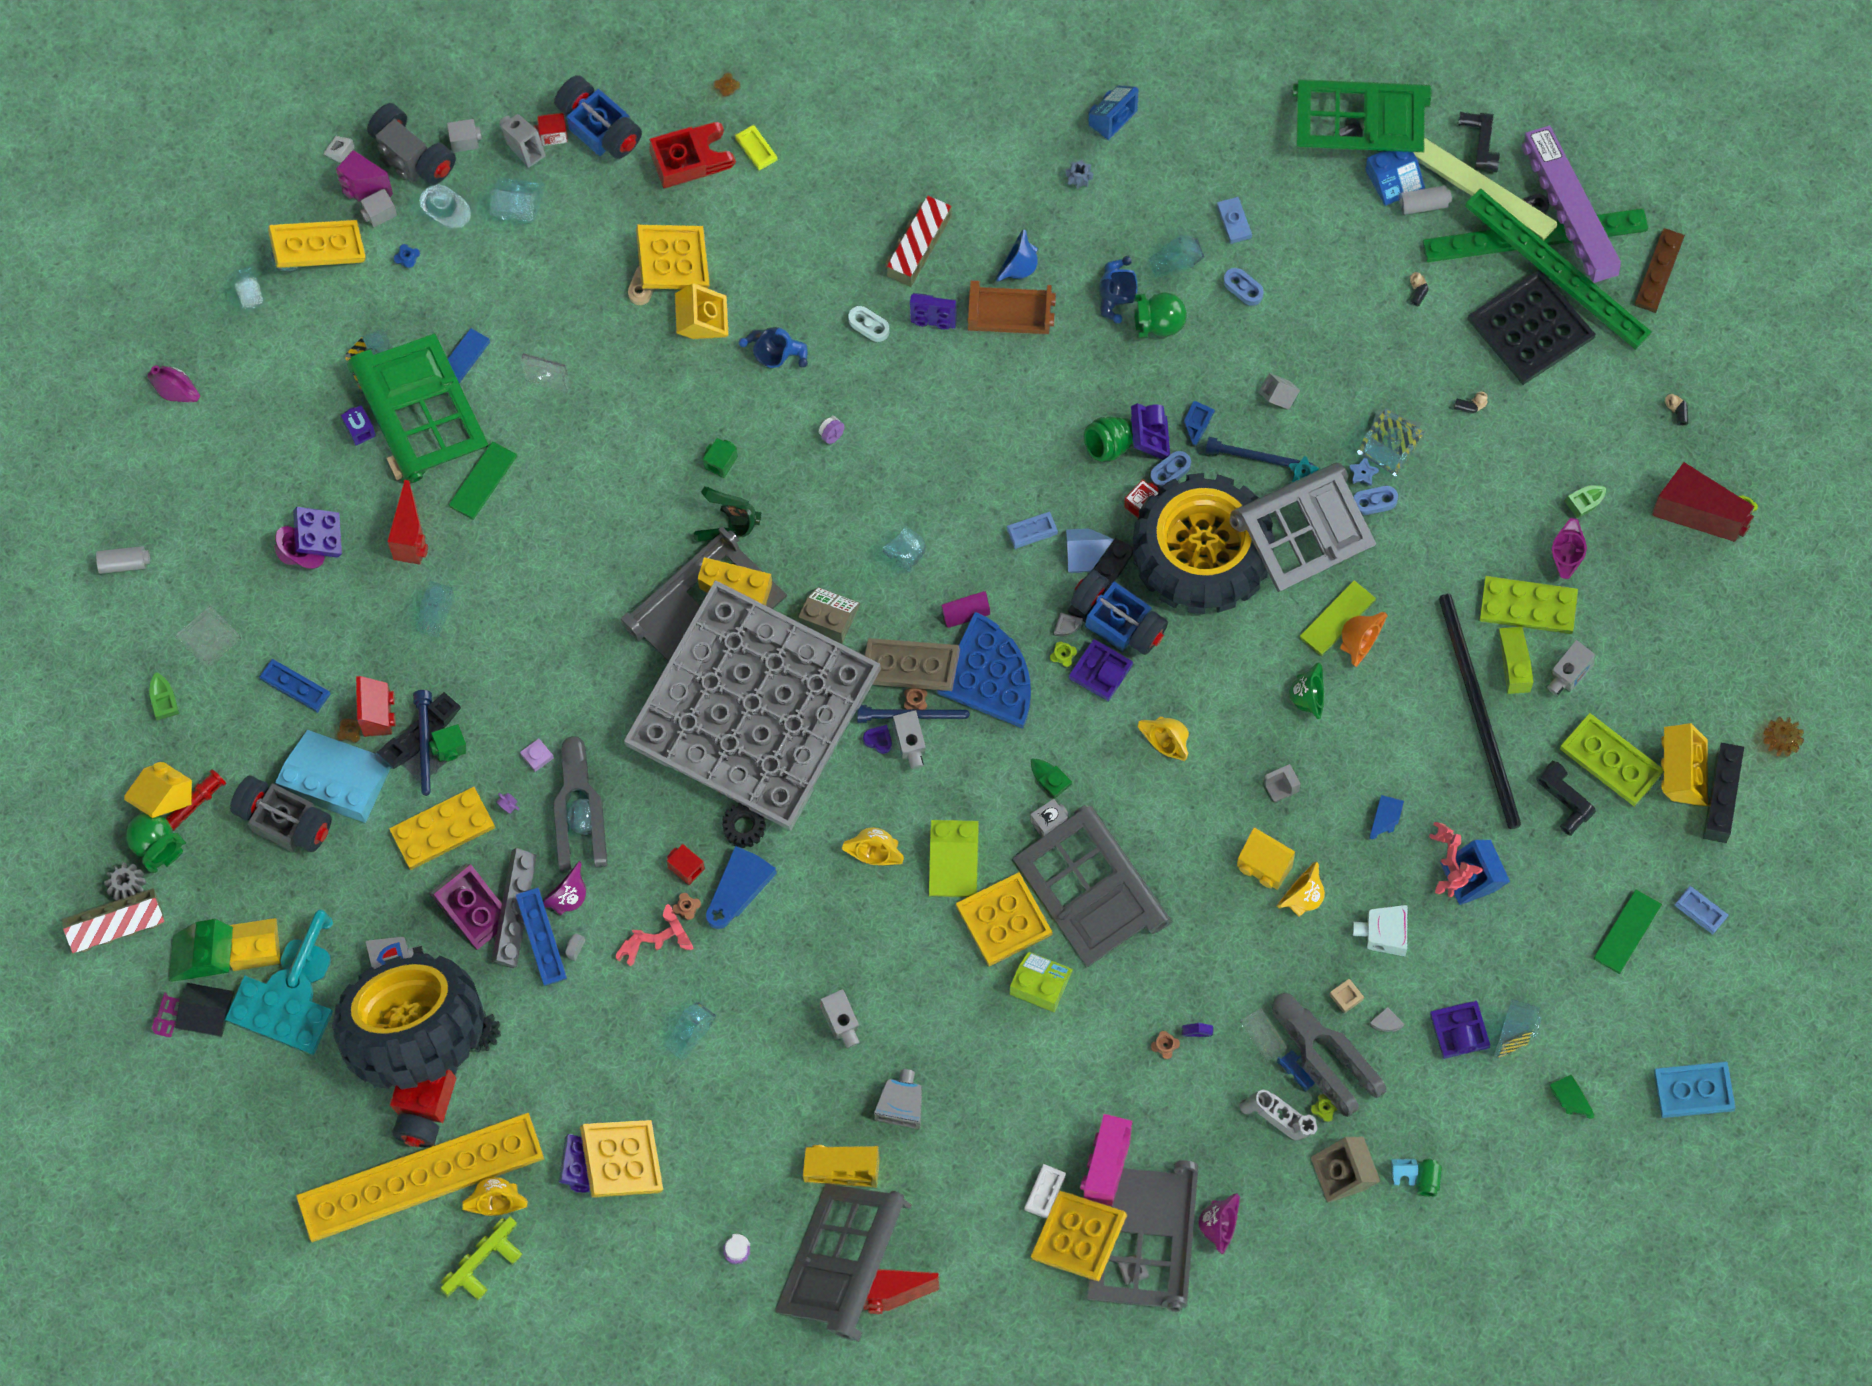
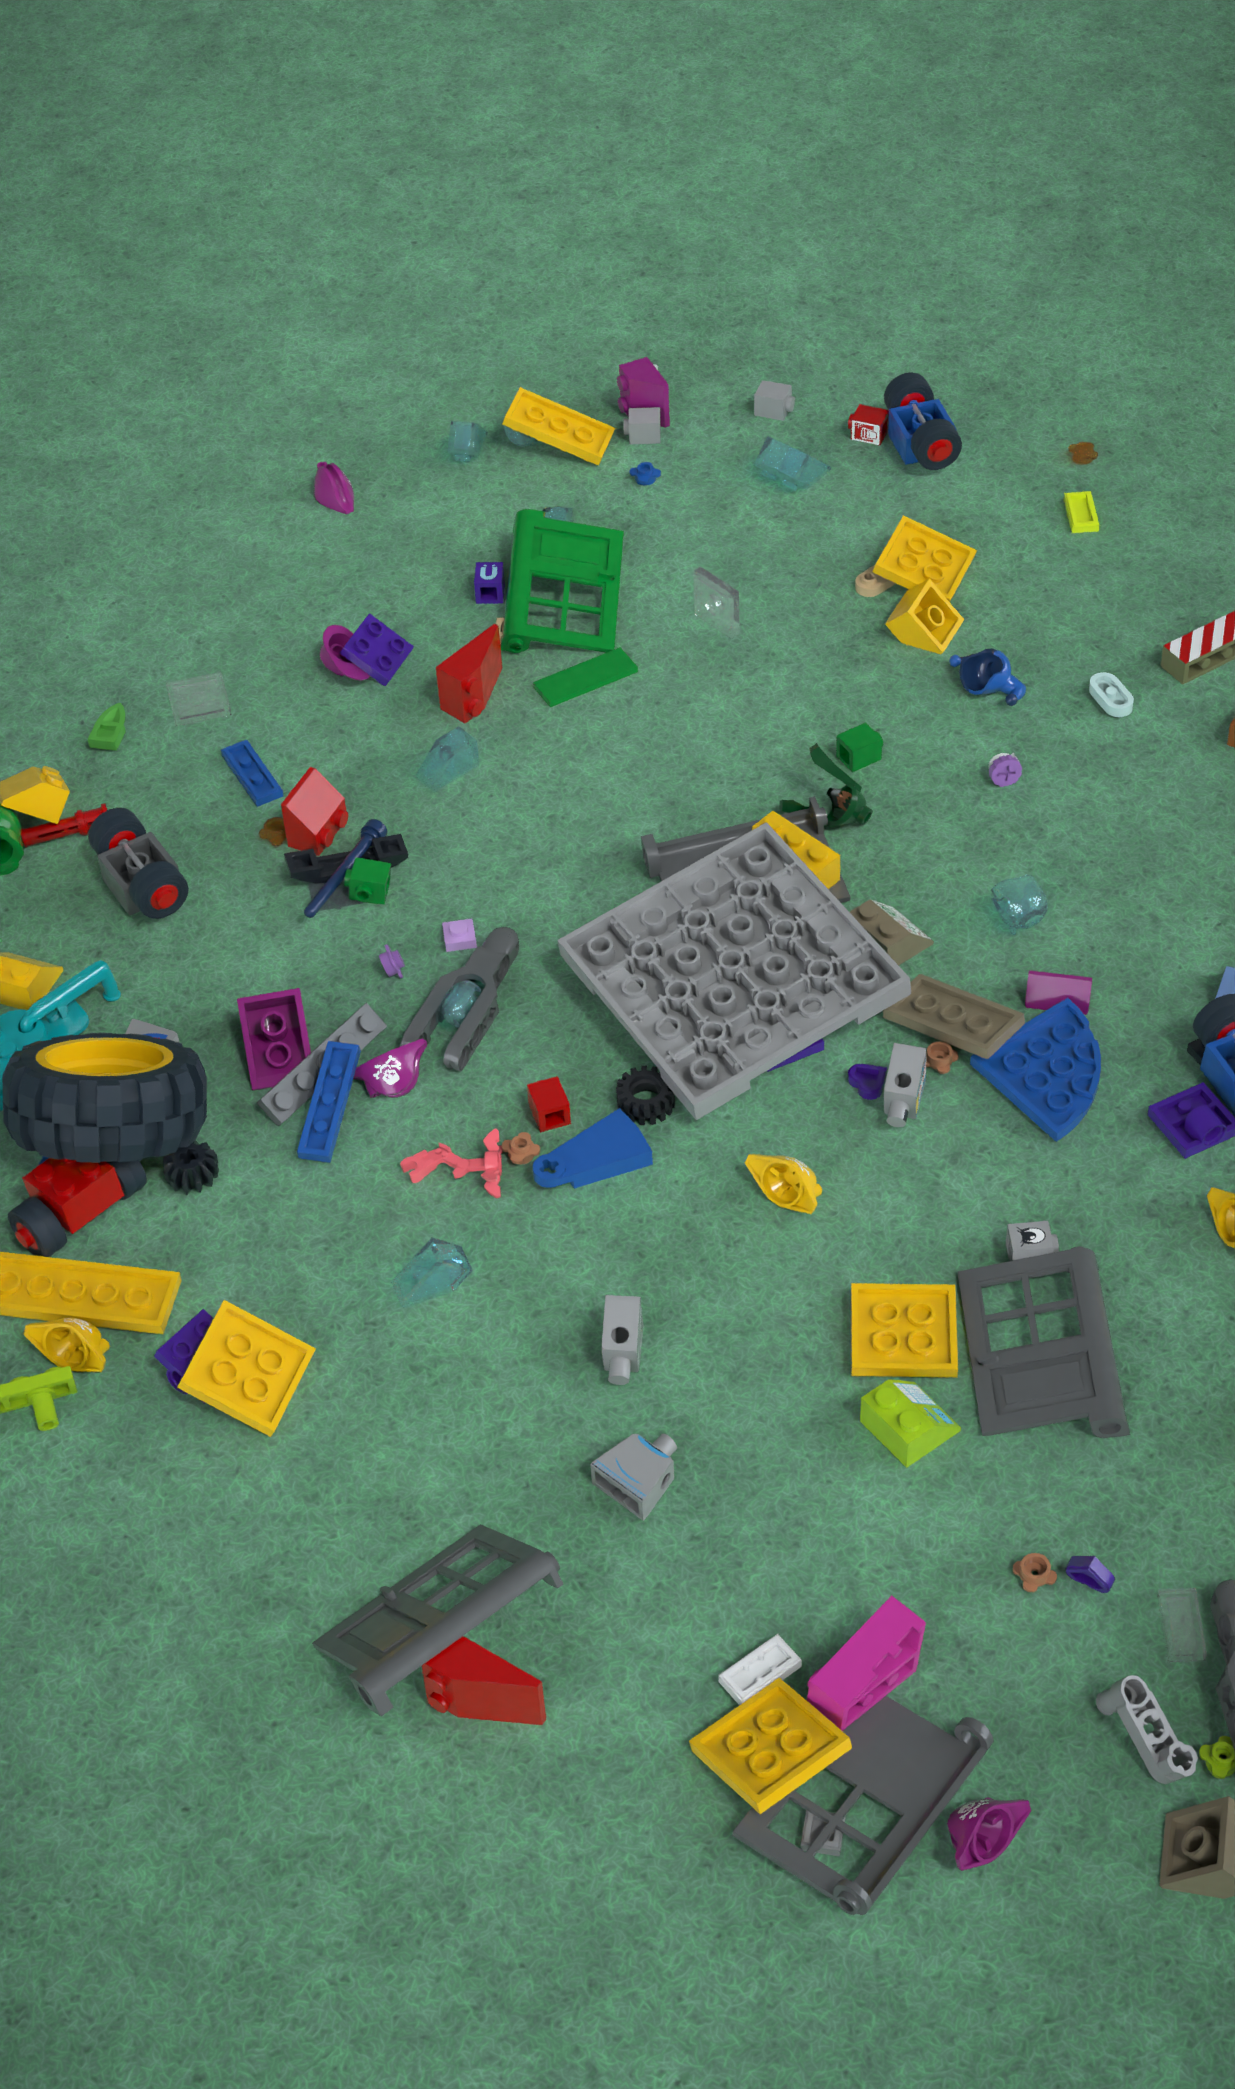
camera: 30 degrees right, 20 degrees down
(122, 559) = (166, 602): light grey brick -> none
(334, 775) = (225, 864): medium azure slope -> none
(405, 150) = (704, 389): brick -> none
(442, 828) = (304, 959): yellow plate -> none
(445, 206) = (712, 443): clear light blue piece -> none
(467, 353) = (647, 570): blue tile -> none
(516, 132) = (832, 412): light grey torso -> none
(575, 946) = (361, 1130): light grey tile -> none
(687, 155) = (1004, 487): red brick -> none
(737, 1249) = (316, 1544): white piece -> none
(842, 1165) = (513, 1505): yellow wedge -> none
(867, 713) = (868, 1046): dark blue piece -> none
(932, 311) = (1193, 701): dark purple plate -> none
(953, 858) = (881, 1233): lime slope -> none
(1032, 530) = (1190, 949): medium blue plate -> none
(1050, 777) = (1061, 1208): green plate -> none
(1060, 648) = (1155, 1085): lime plate -> none
(1067, 624) = (1178, 1058): light grey tile -> none
(1289, 1063) = (1207, 1699): blue piece -> none

